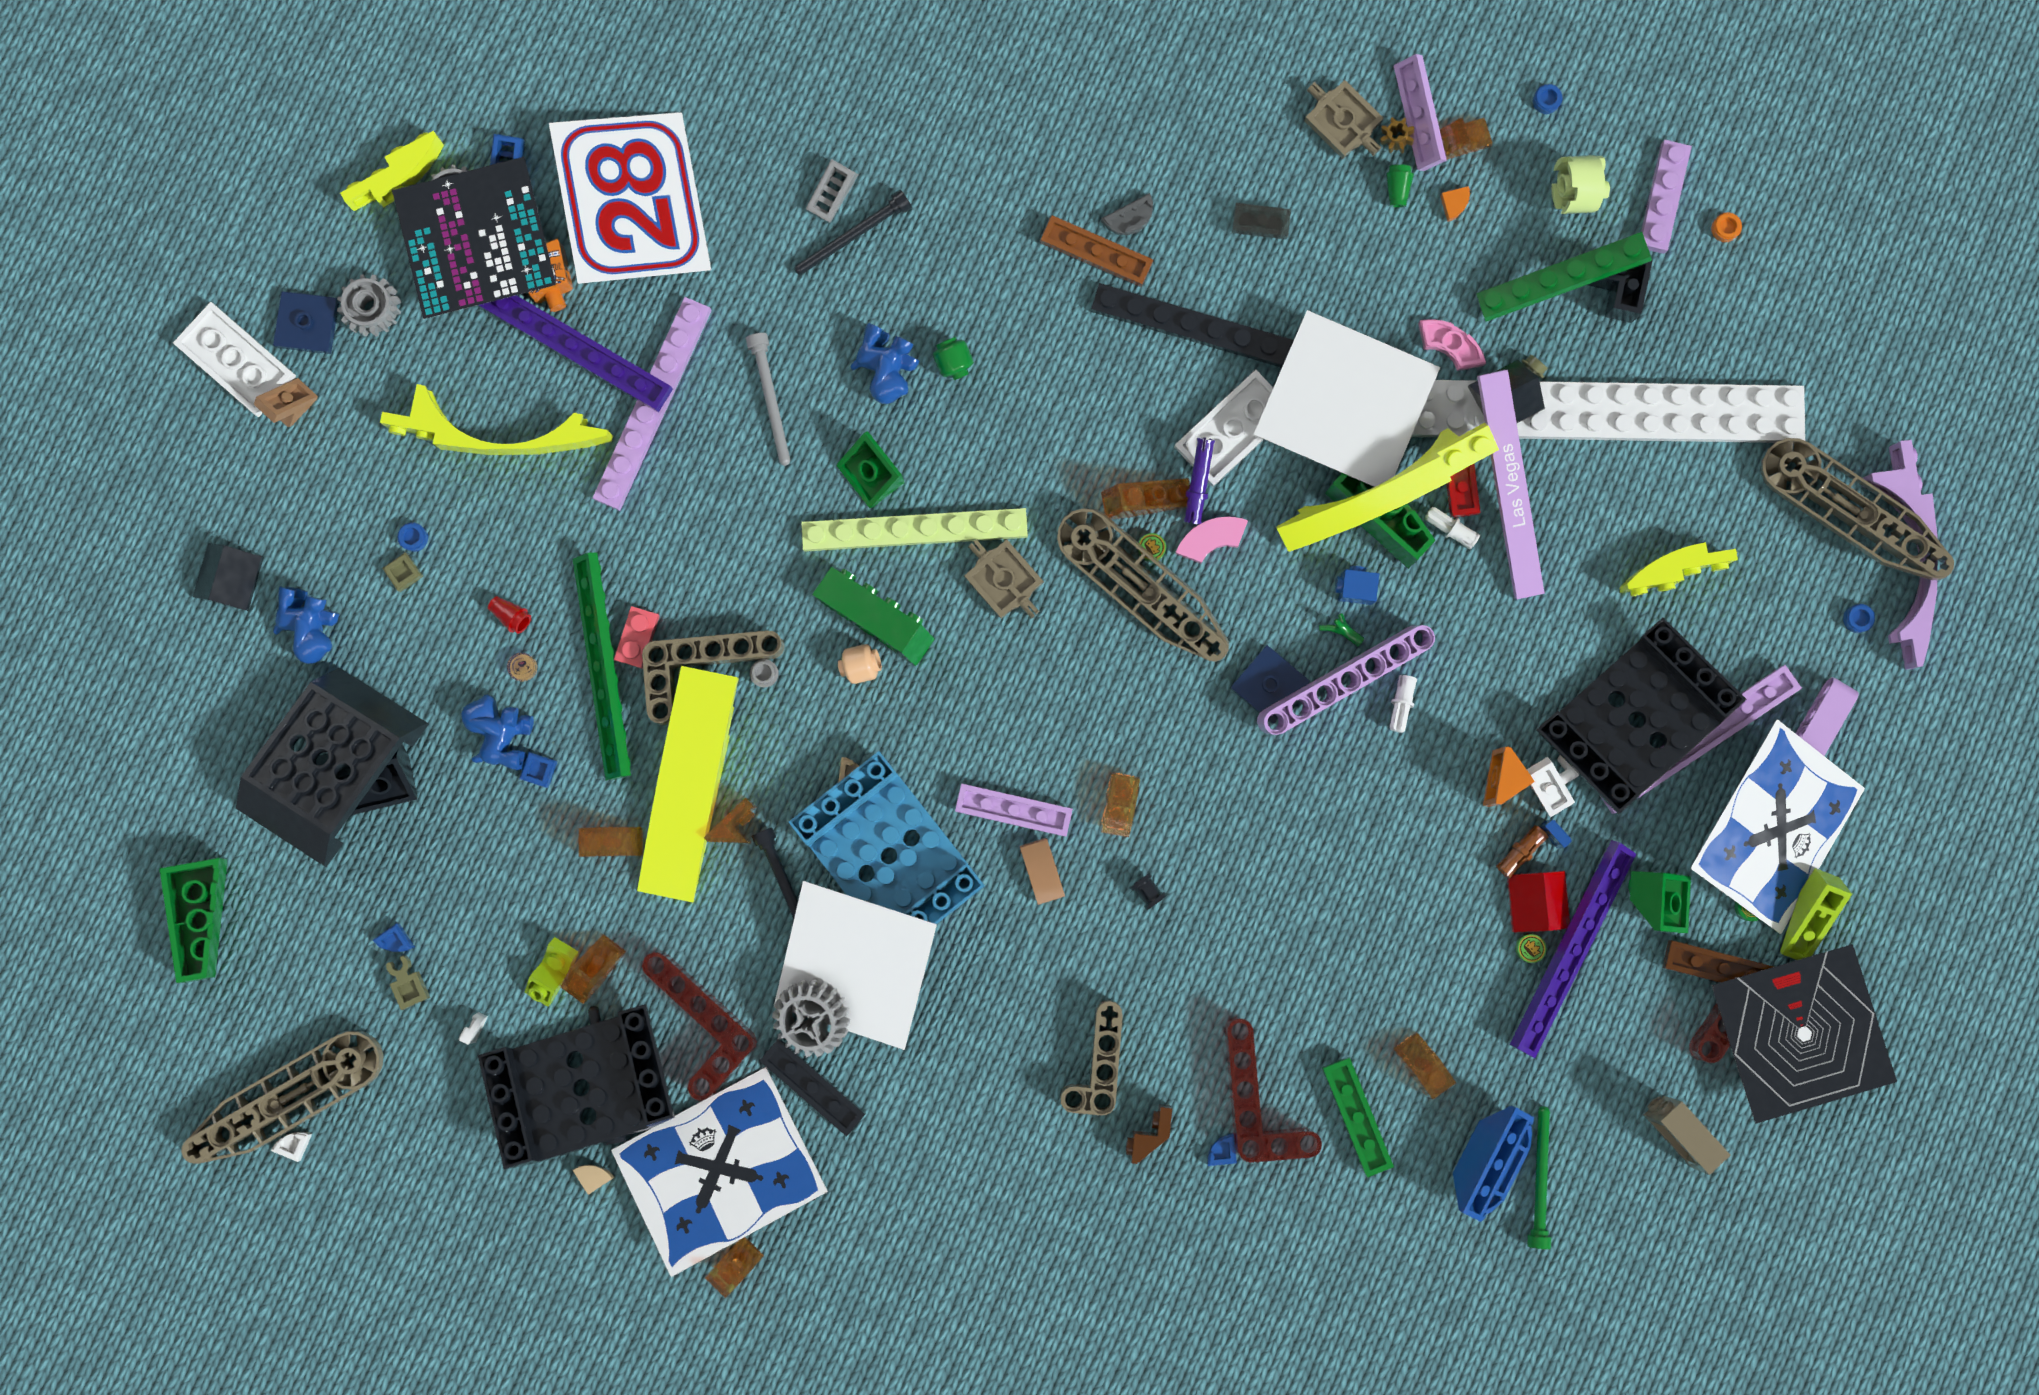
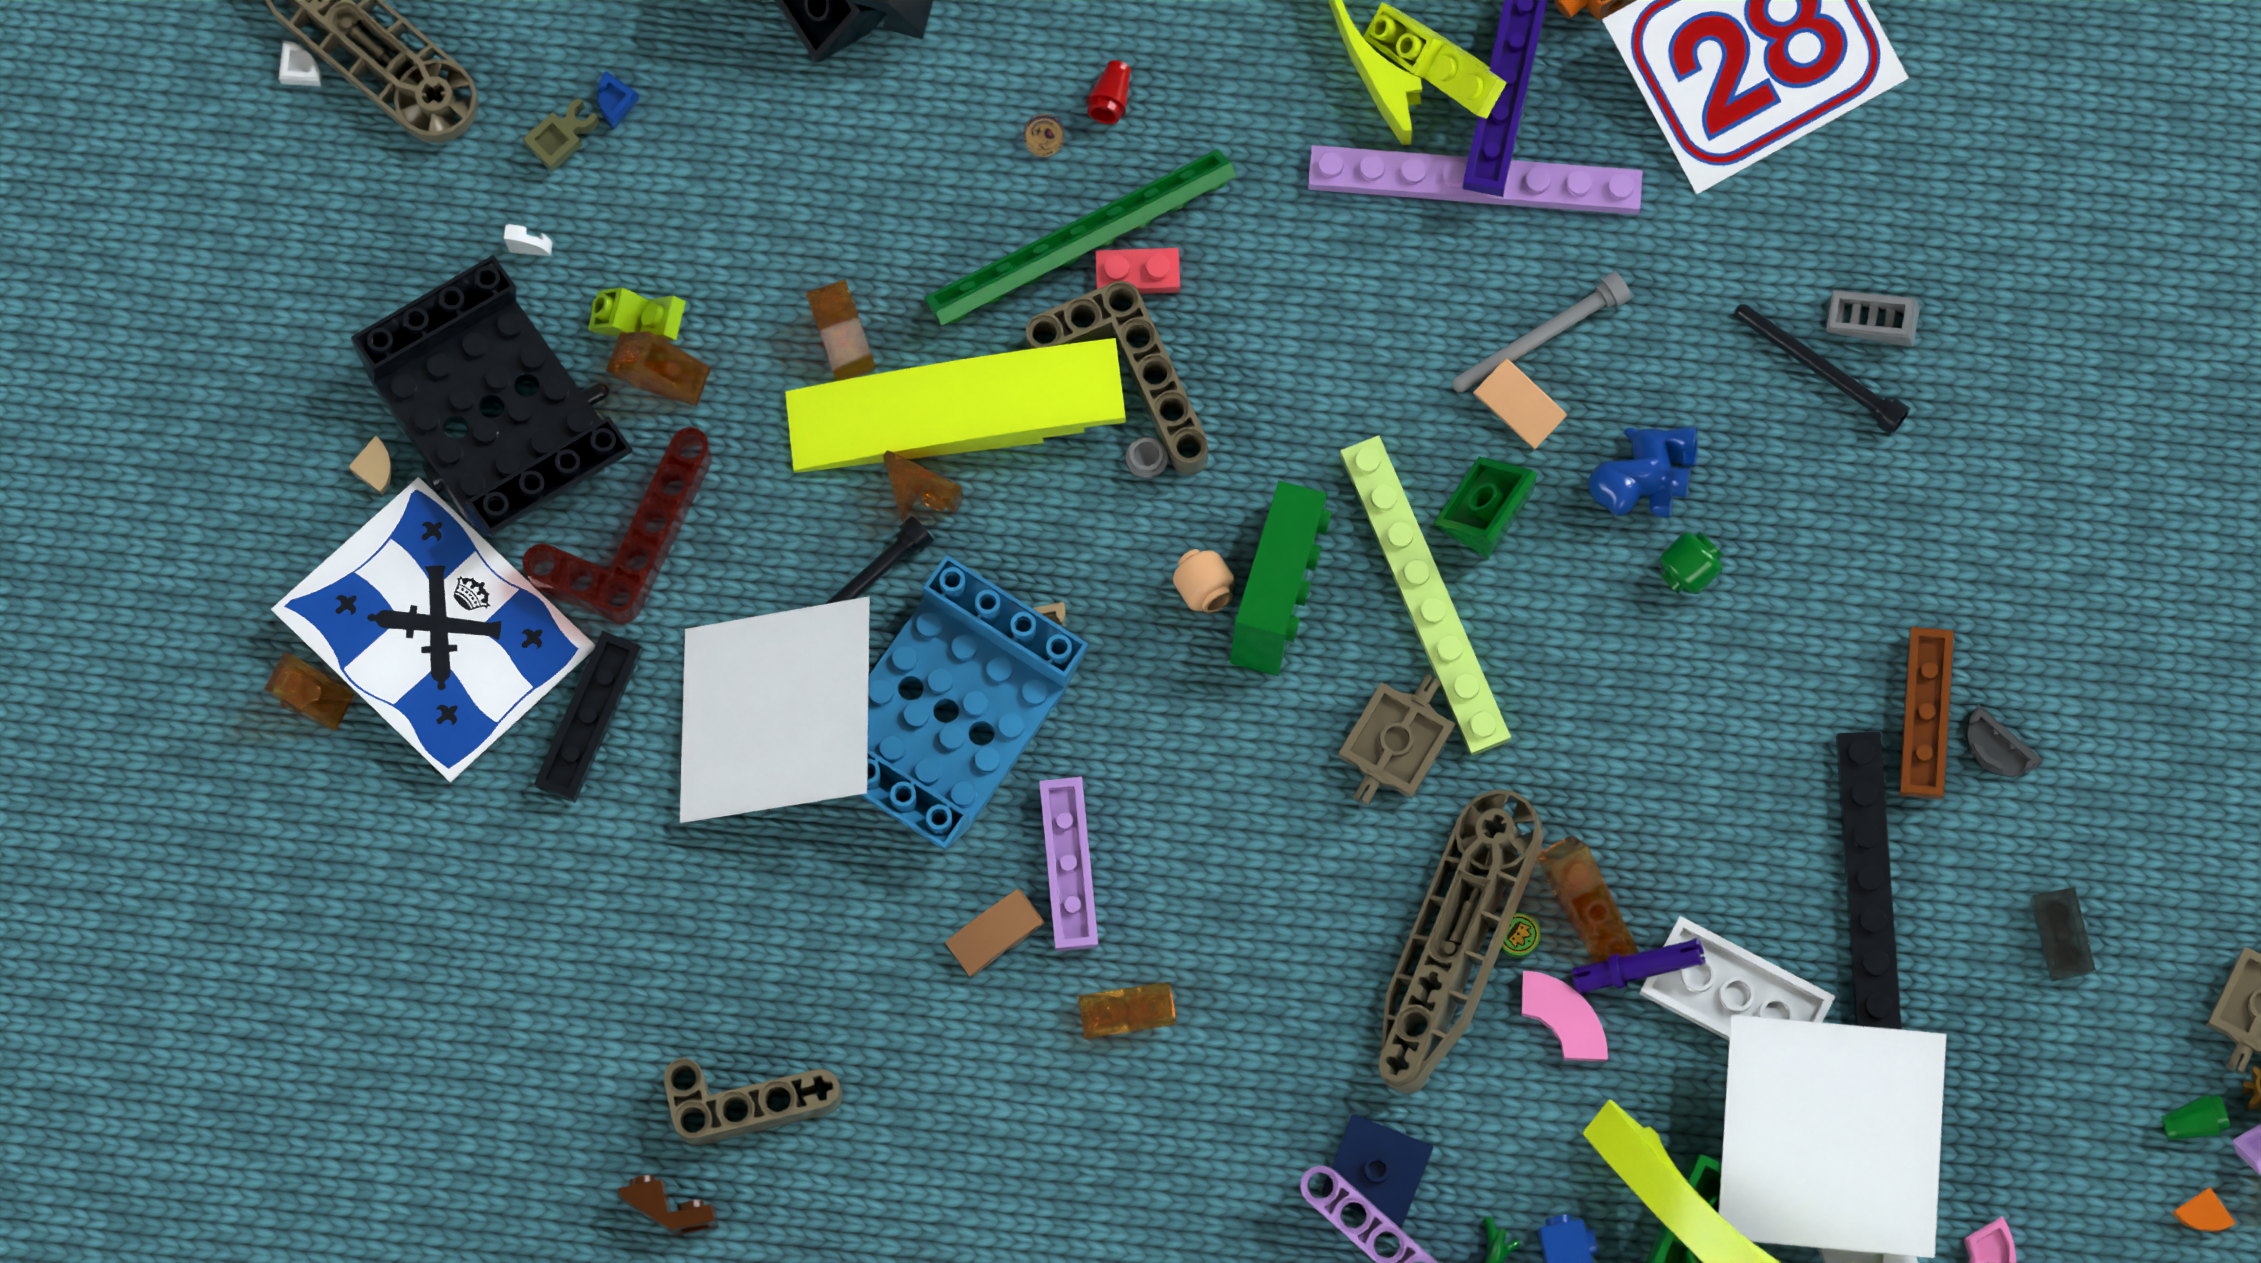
camera: 75 degrees right, 10 degrees down
(498, 731) = (944, 133): blue animal -> none
(538, 770) = (908, 205): blue tile -> none
(565, 398) = (1435, 59): none -> neon yellow slope
(812, 426) = (1520, 403): none -> light nougat slope
(817, 1037) = (702, 660): light grey gear -> none
(1148, 891) = (1015, 1091): black bush -> none

